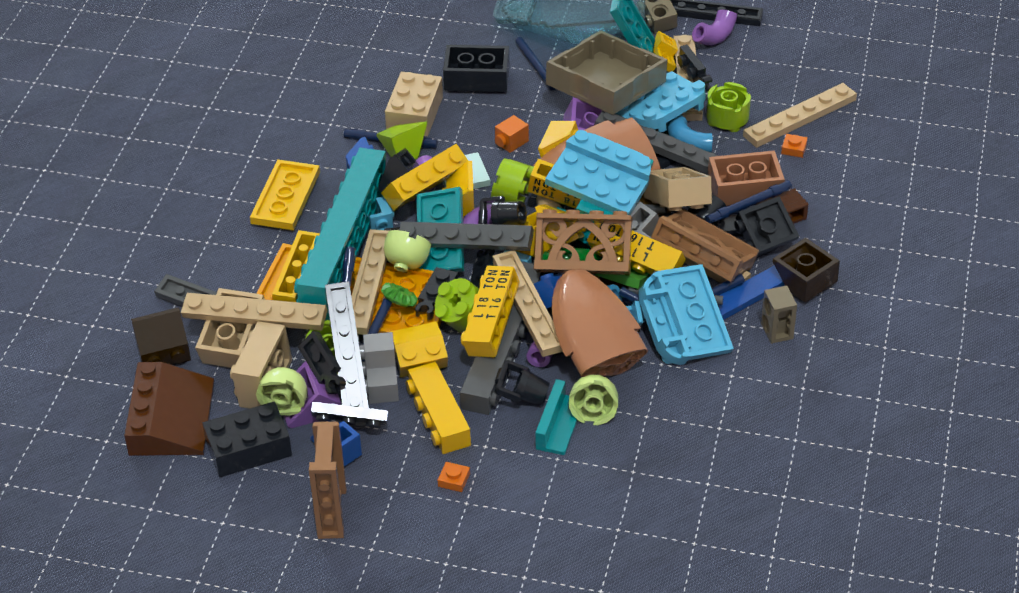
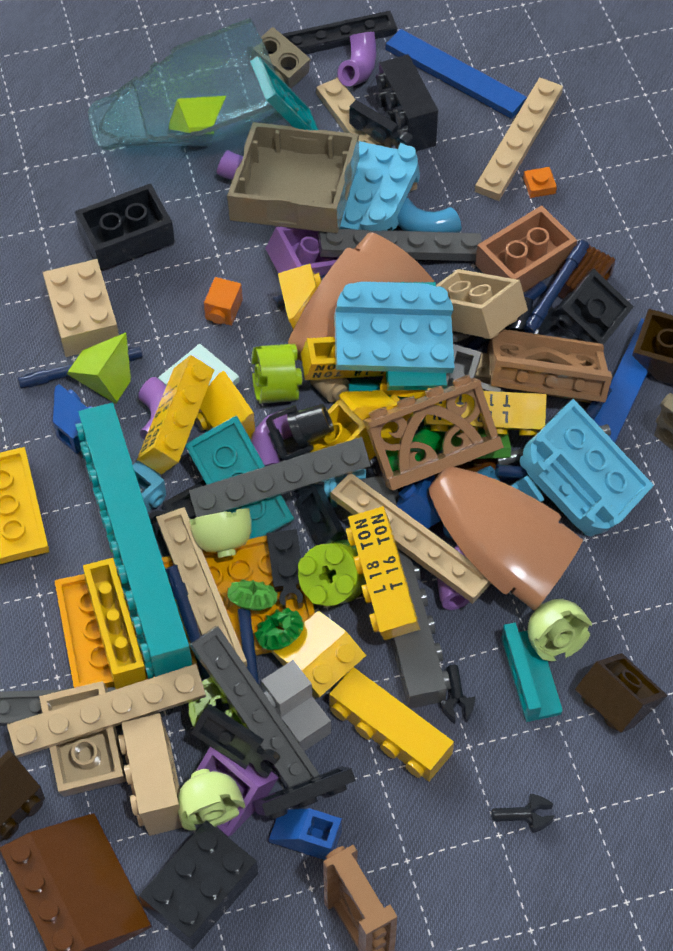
camera: 30 degrees left, 15 degrees up
(396, 167) = (135, 416): black tile -> none
(402, 320) = (272, 638): none -> green gear
(453, 476) = (465, 808): orange plate -> none
(490, 416) = (456, 696): none -> black bar
(495, 498) = (526, 813): none -> black bar
(527, 387) = (470, 649): black piece -> none
(533, 59) = (182, 187): dark blue bar -> none
(570, 14) = (195, 113): none -> lime slope
(611, 453) = (619, 692): none -> dark brown slope
(666, 48) = (321, 111): yellow slope -> none
(725, 55) = (407, 101): none -> black brick
(728, 106) = (444, 162): lime brick -> none
(782, 61) = (457, 73): none -> blue tile

